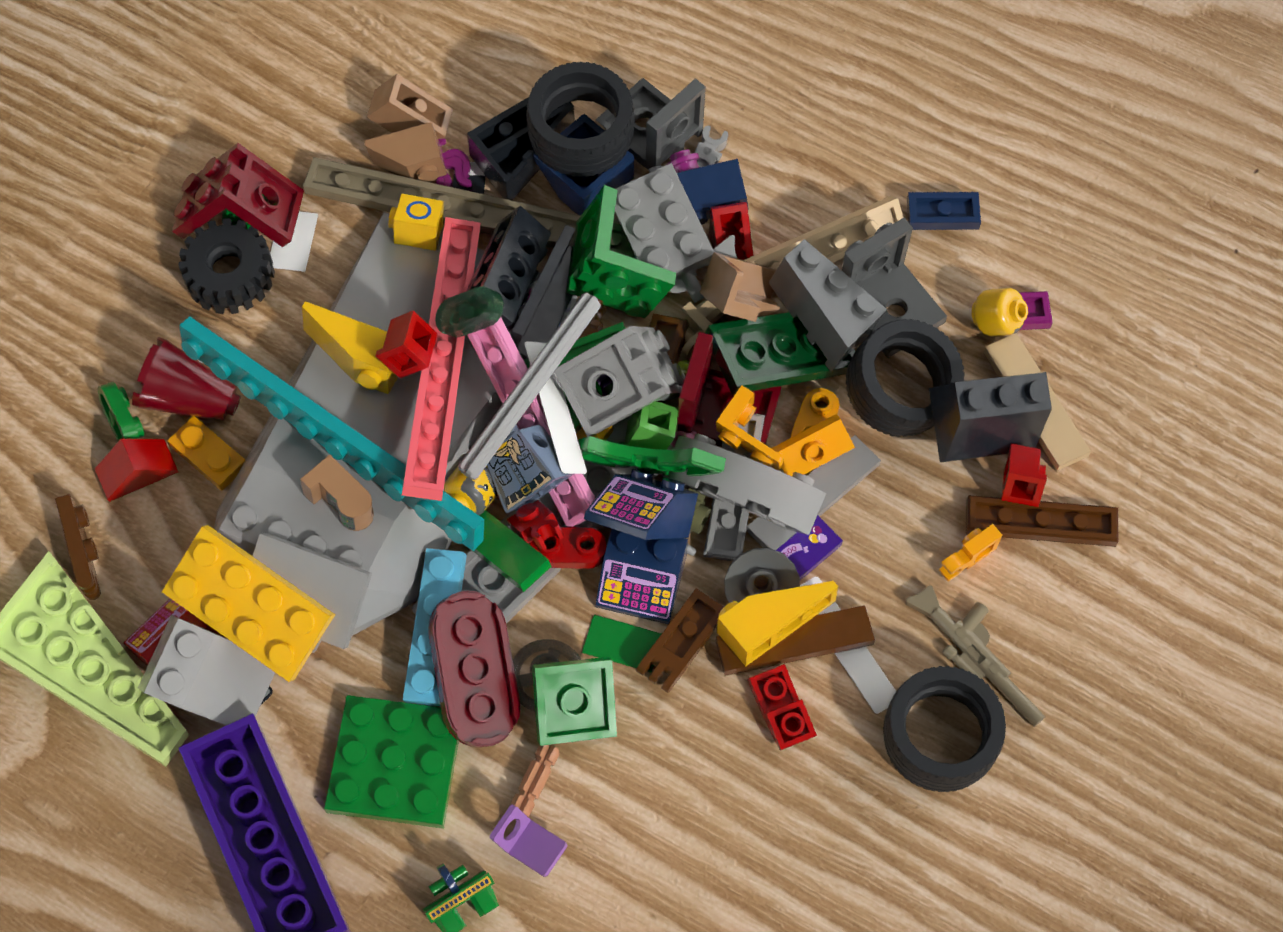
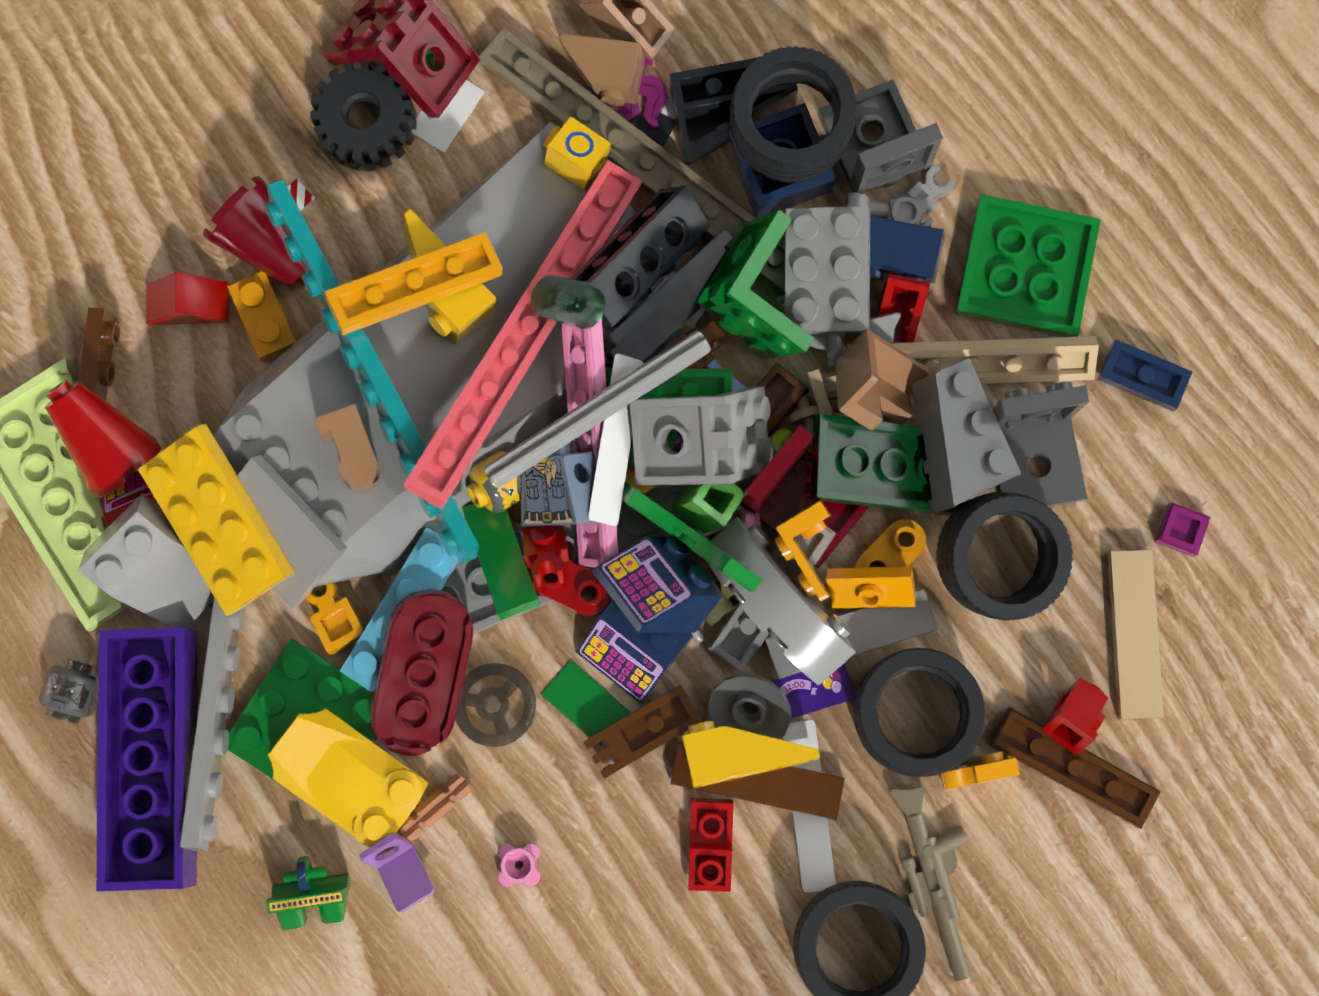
camera: 30 degrees right, 15 degrees up
(110, 592) = (98, 437): none -> red cone
(115, 407) = (192, 221): green plate -> none
(170, 822) = (70, 691): none -> head
(316, 800) = (210, 737): none -> light grey plate
(334, 349) = (413, 283): none -> light orange plate
(378, 665) = (336, 621): none -> light orange plate
(407, 345) = (489, 310): red brick -> none
(447, 781) = (346, 776): none -> yellow slope
(574, 700) = (504, 750): plate -> none
(633, 784) = (510, 874): none -> bright pink plate
(684, 160) = (886, 205): magenta plate -> none
(813, 169) = (1028, 266): none -> green plate
(908, 485) = (970, 706): none -> black tyre
(989, 415) = (1071, 638): black slope -> none
(999, 311) = (1144, 522): yellow head -> none

